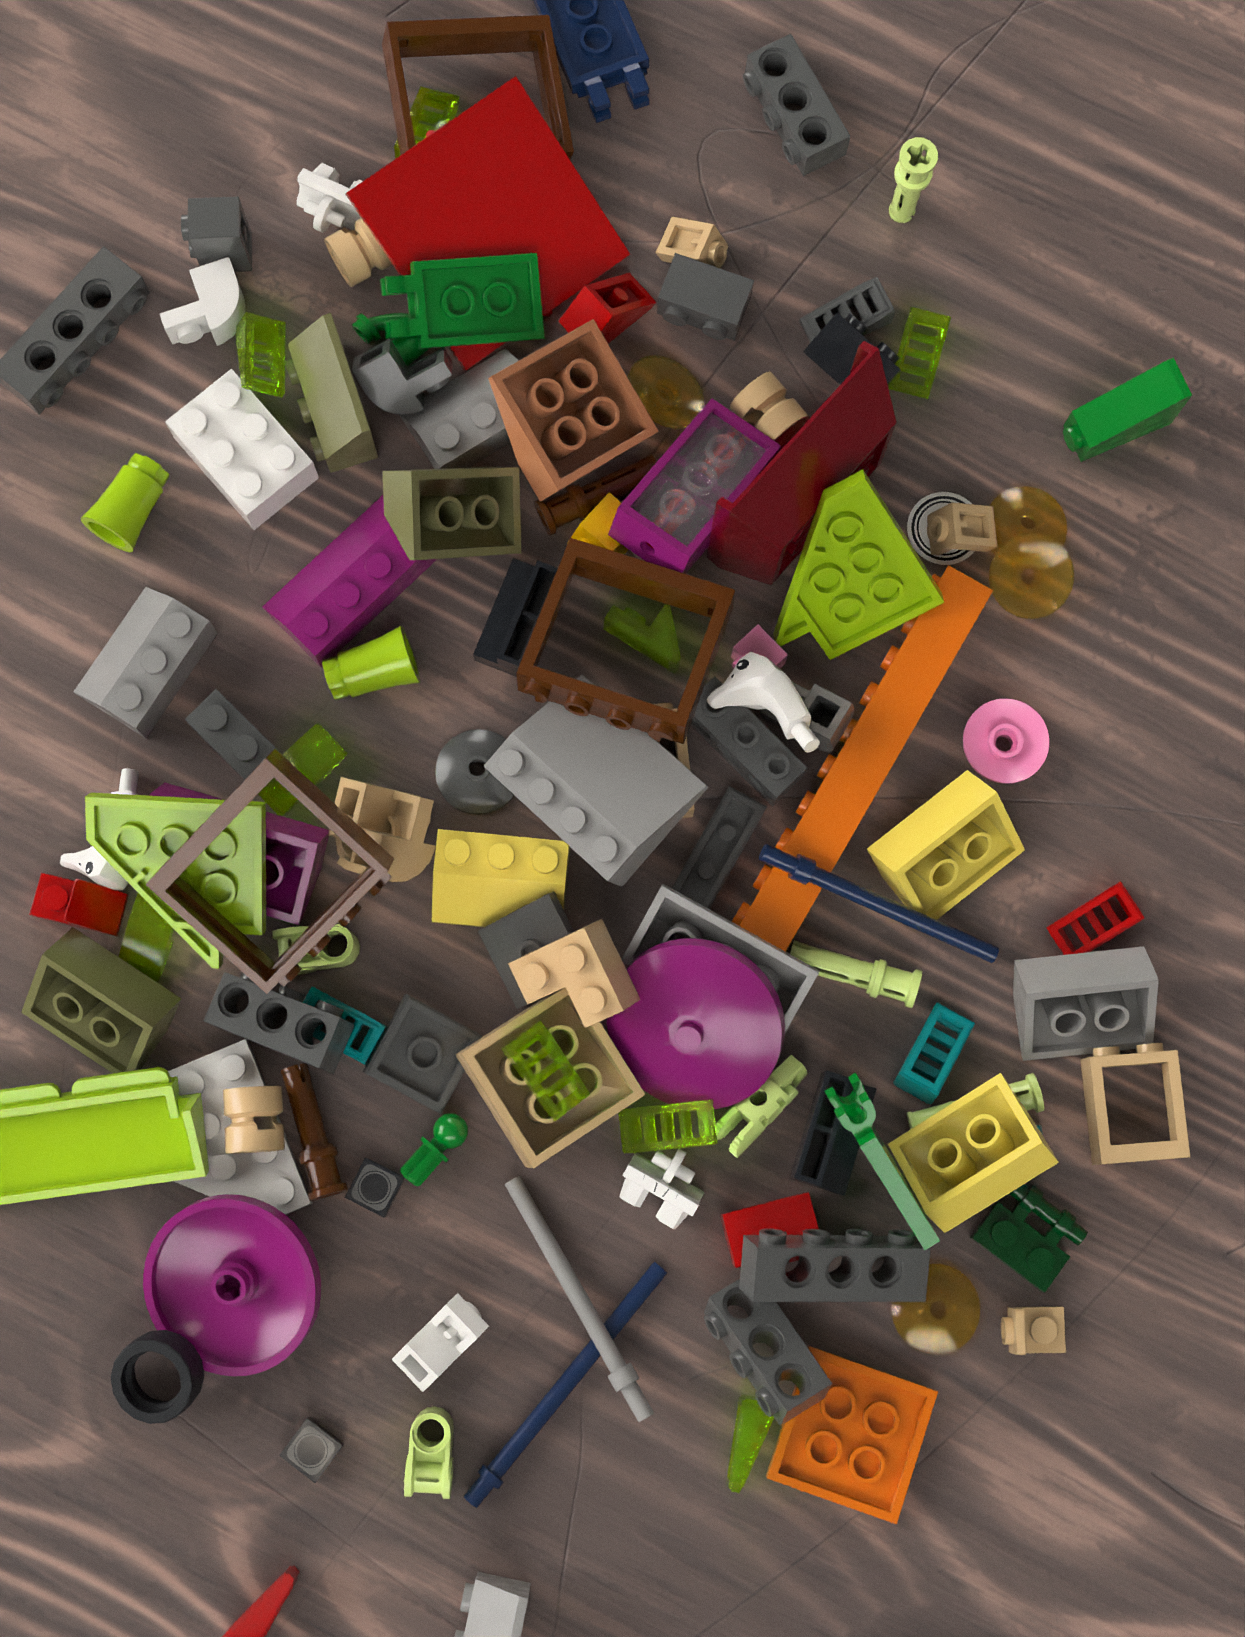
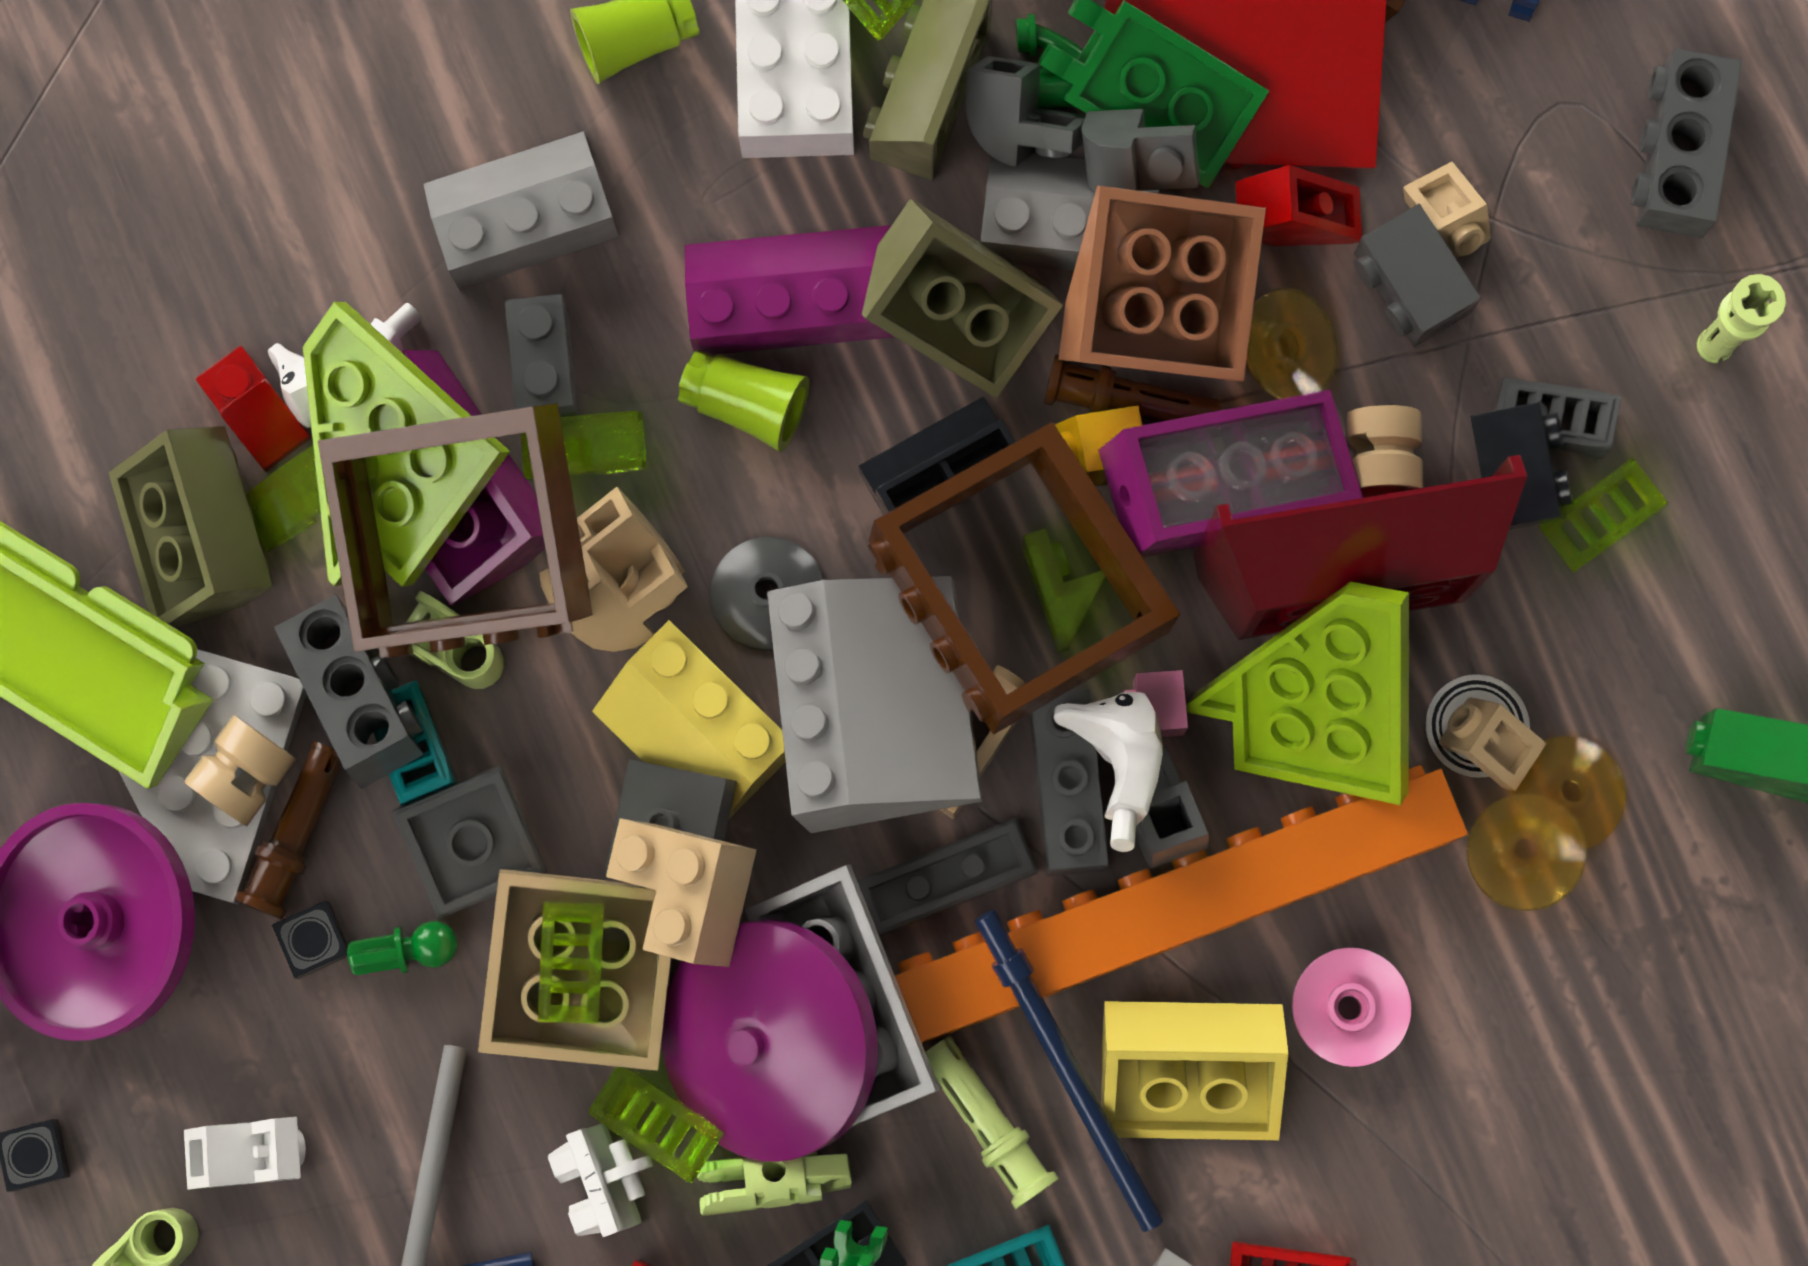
camera: 45 degrees right, 0 degrees up
(490, 349) = (1138, 158): none -> dark grey brick

